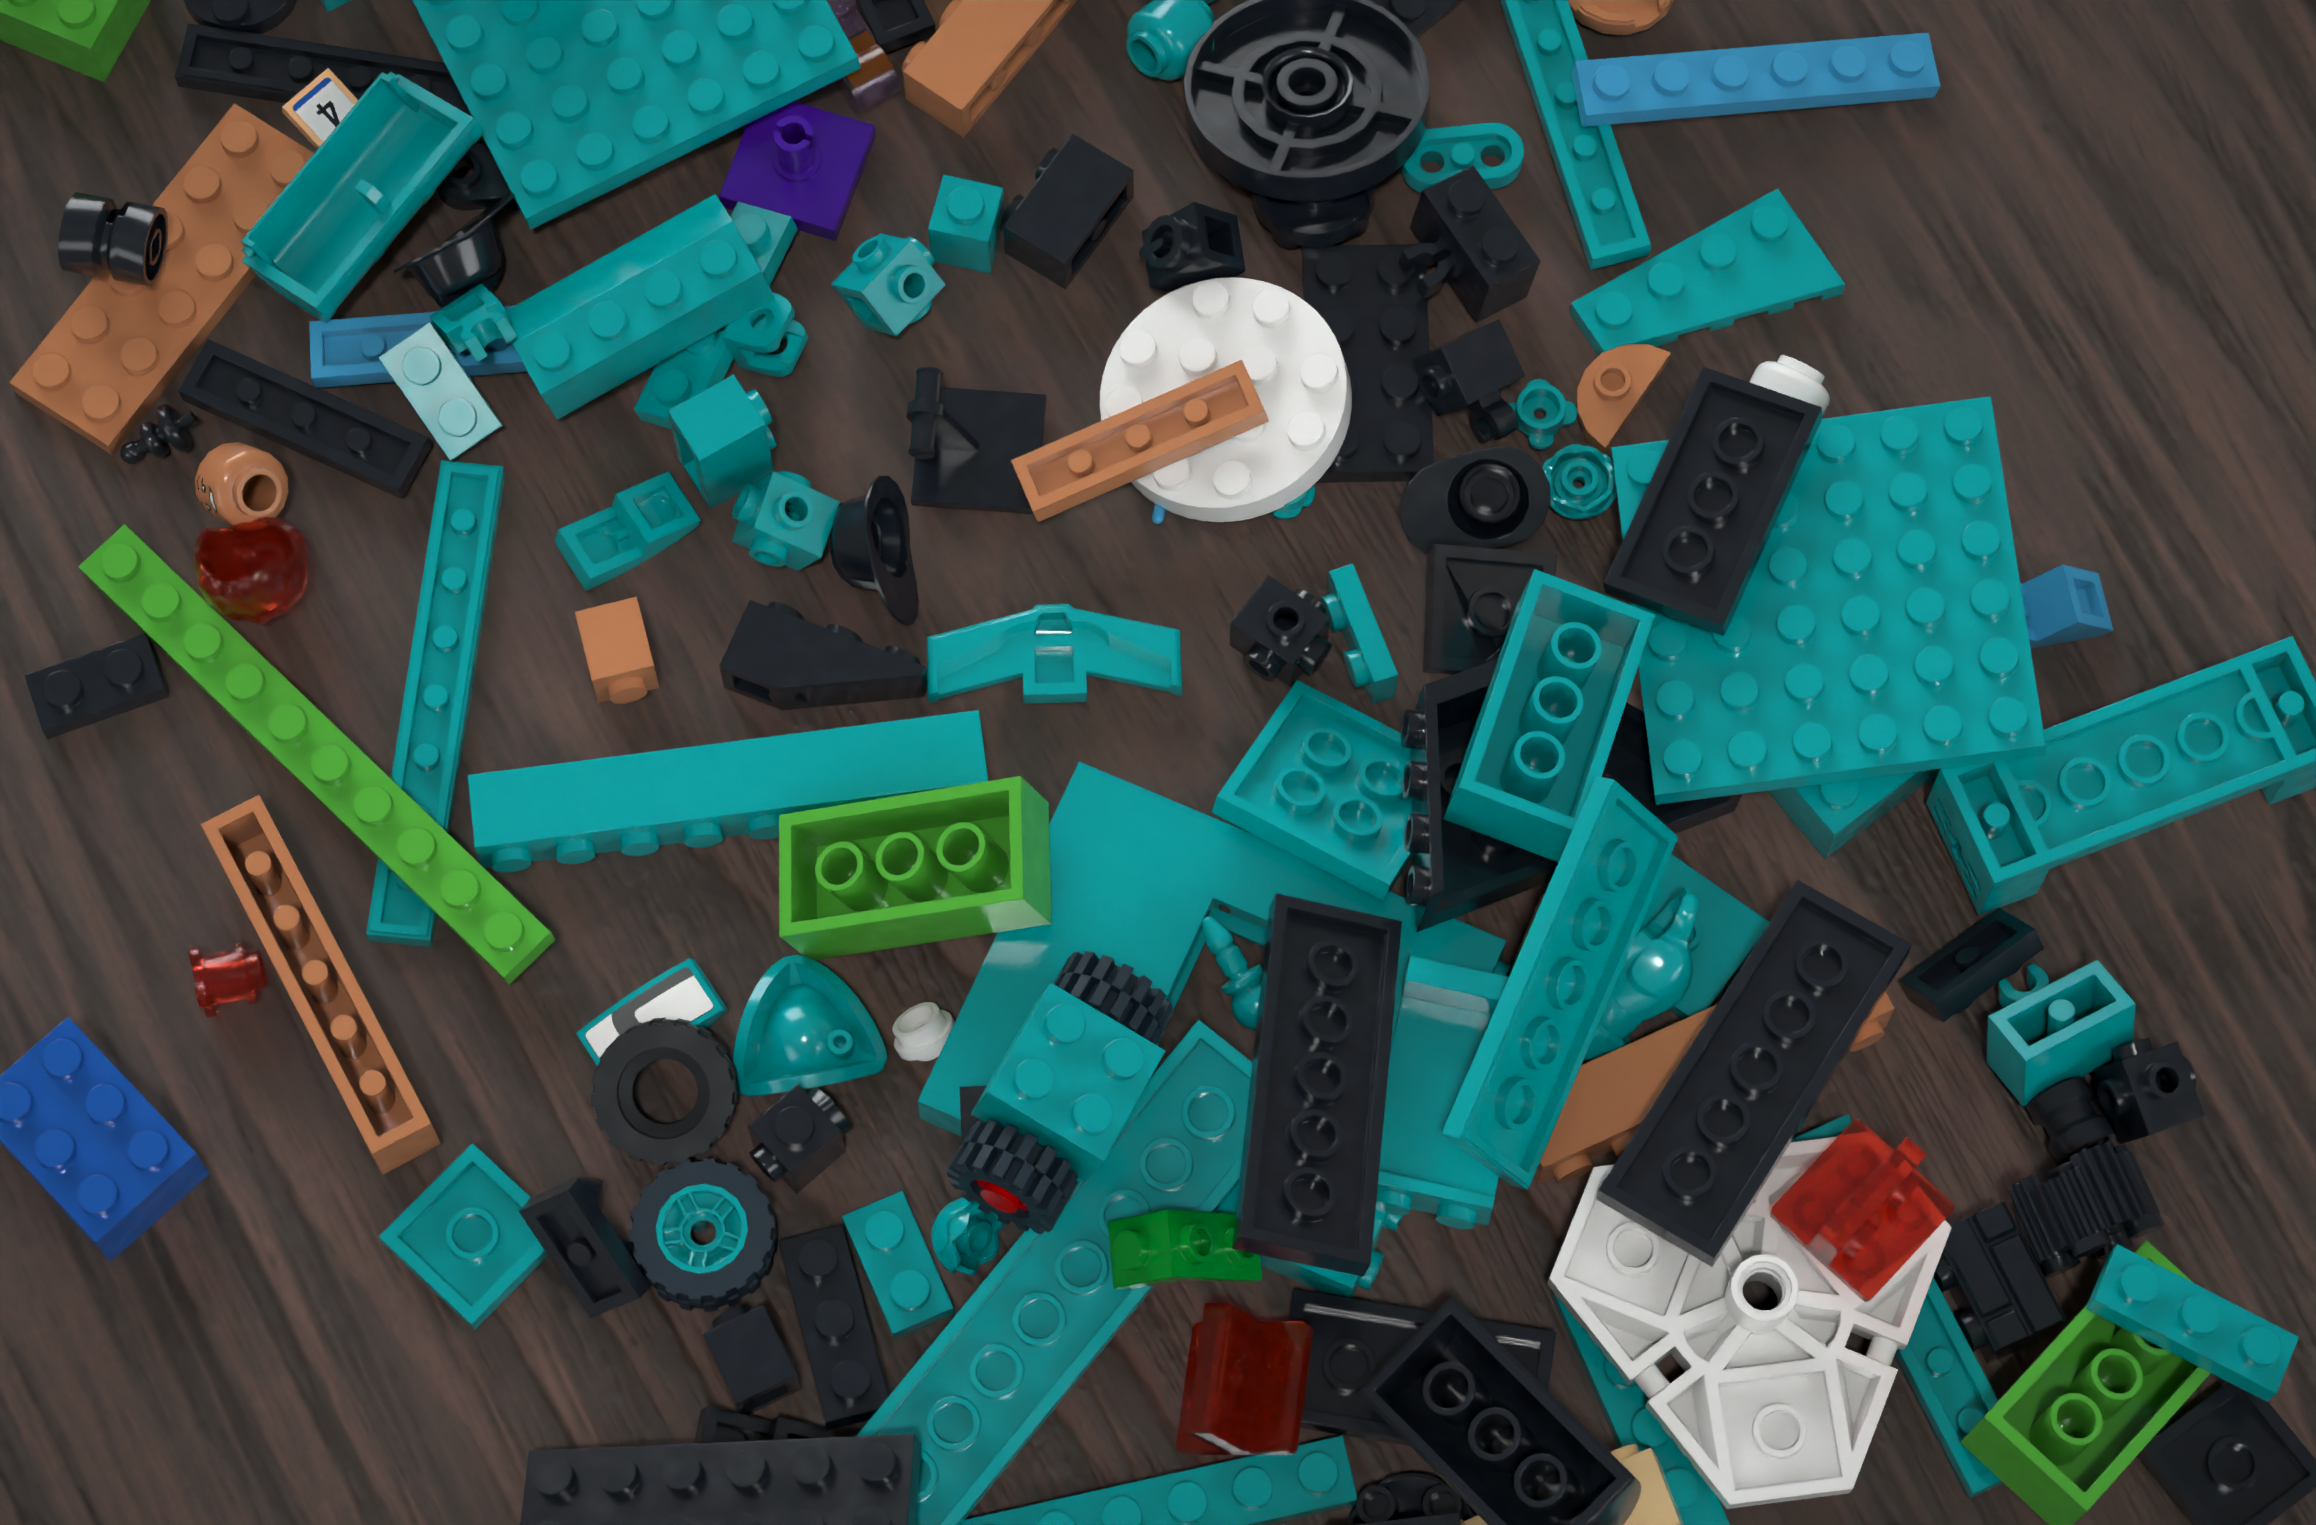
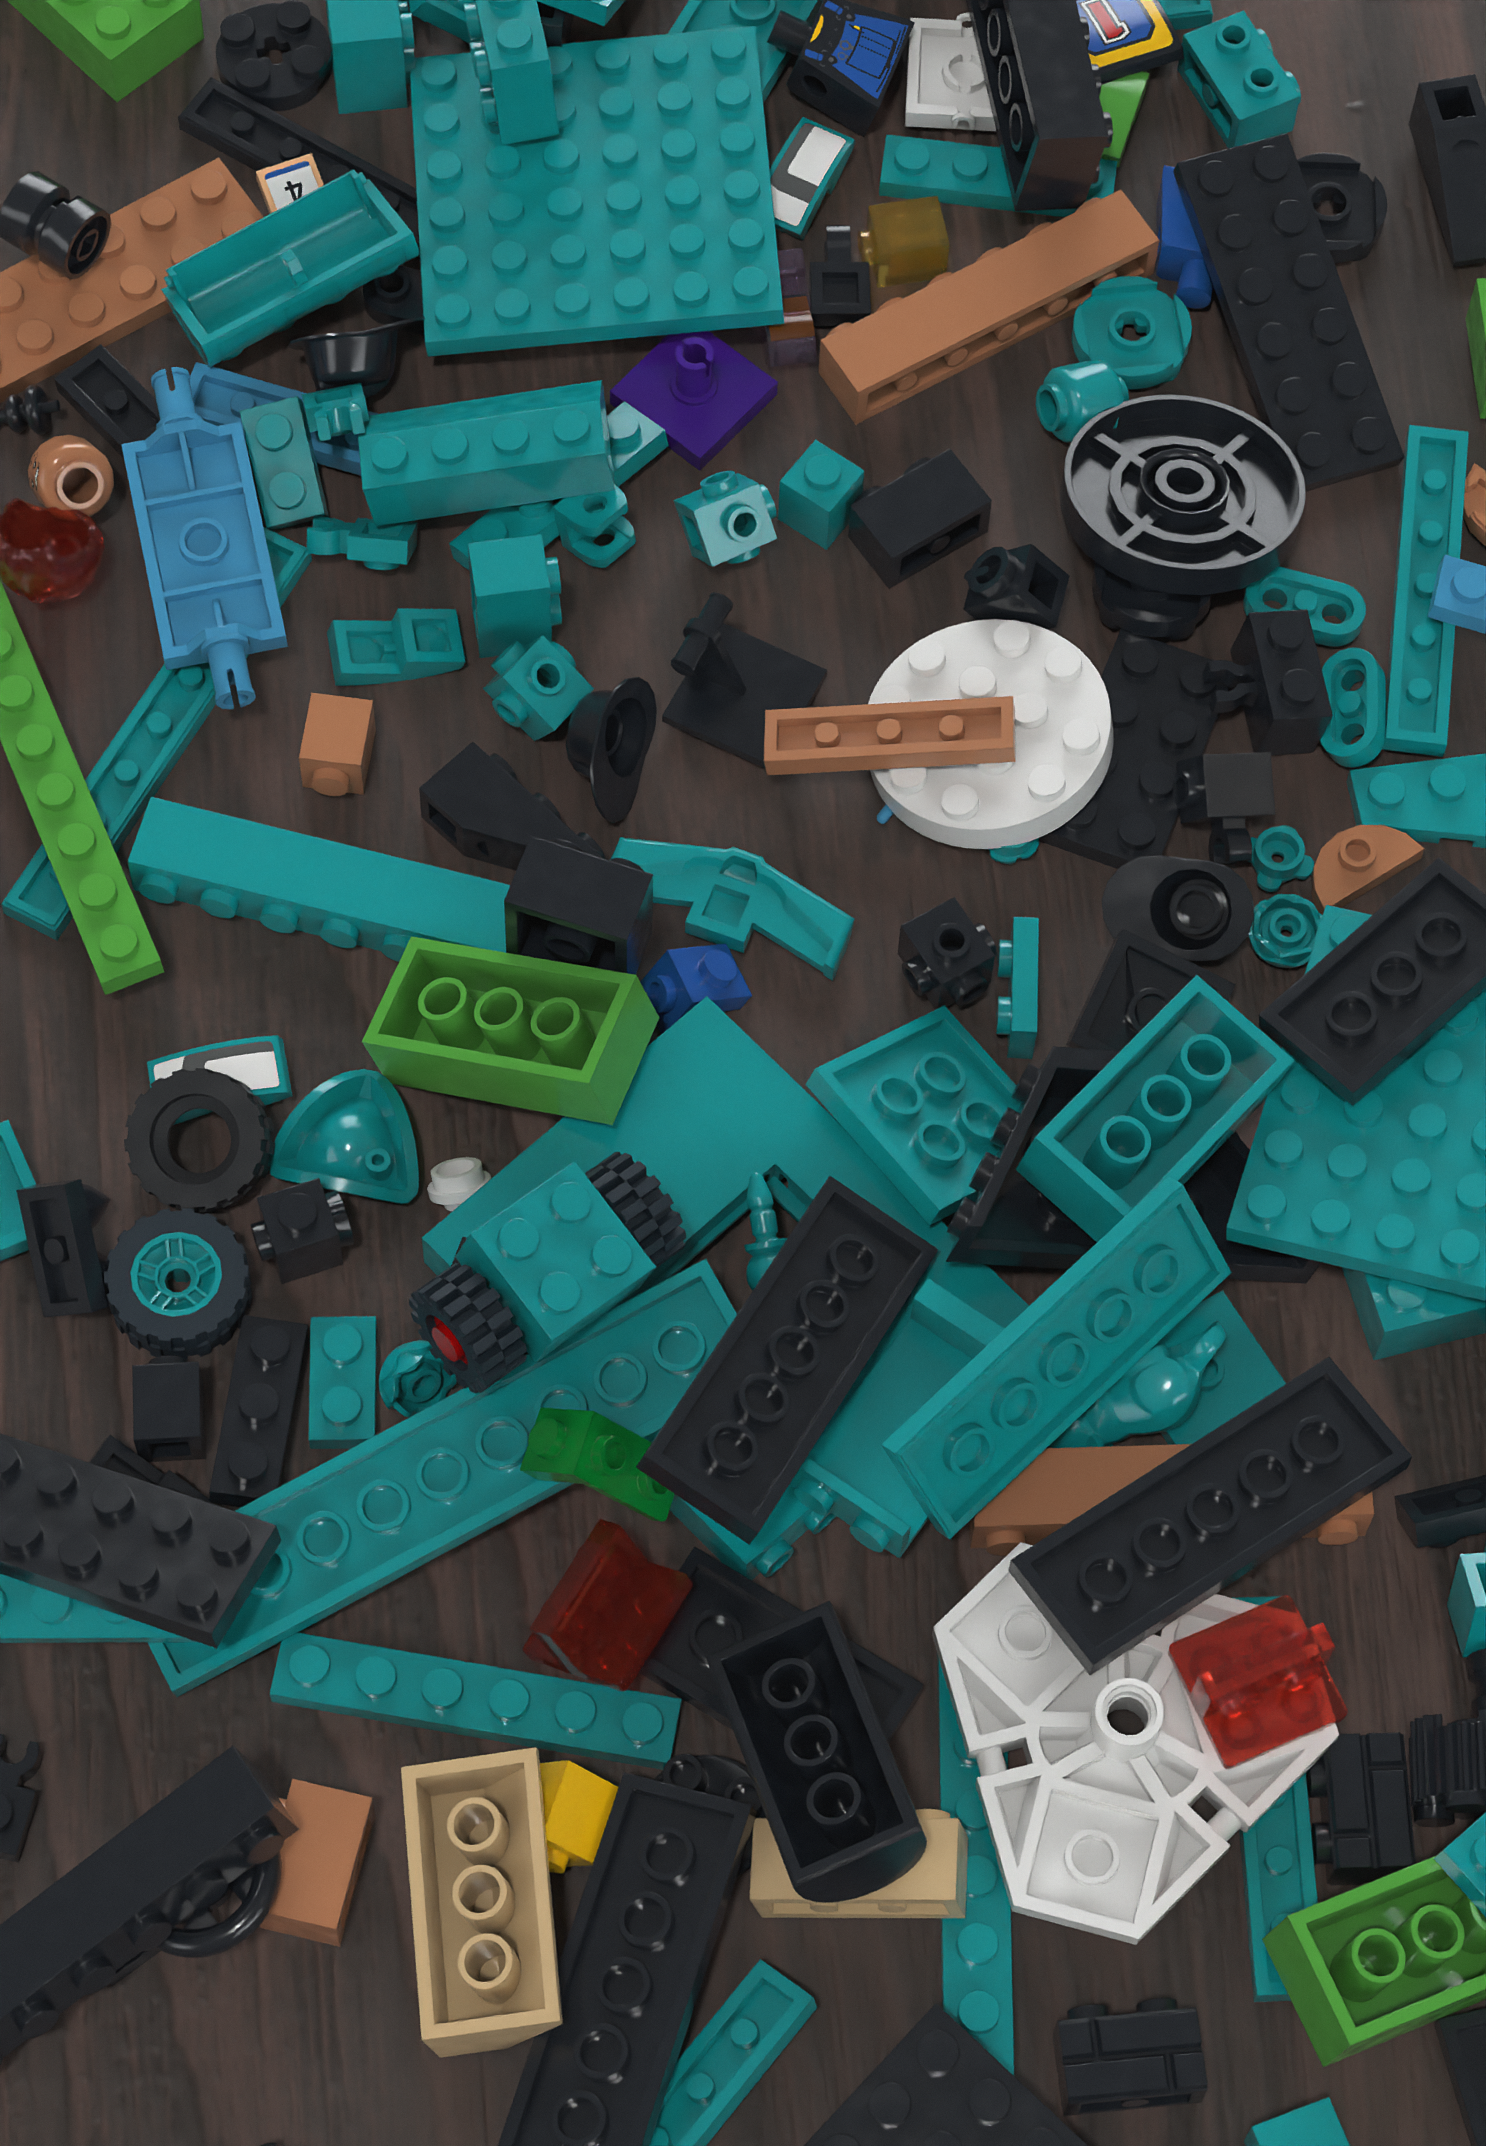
camera: 20 degrees right, 5 degrees down
(403, 502) = (203, 542): none -> dark azure plate
(563, 439) = (378, 546): none -> teal plate
(934, 731) = (578, 907): none -> black brick
(1053, 747) = (688, 976): none -> blue bracket
(1554, 241) = (1357, 710): none -> teal plate

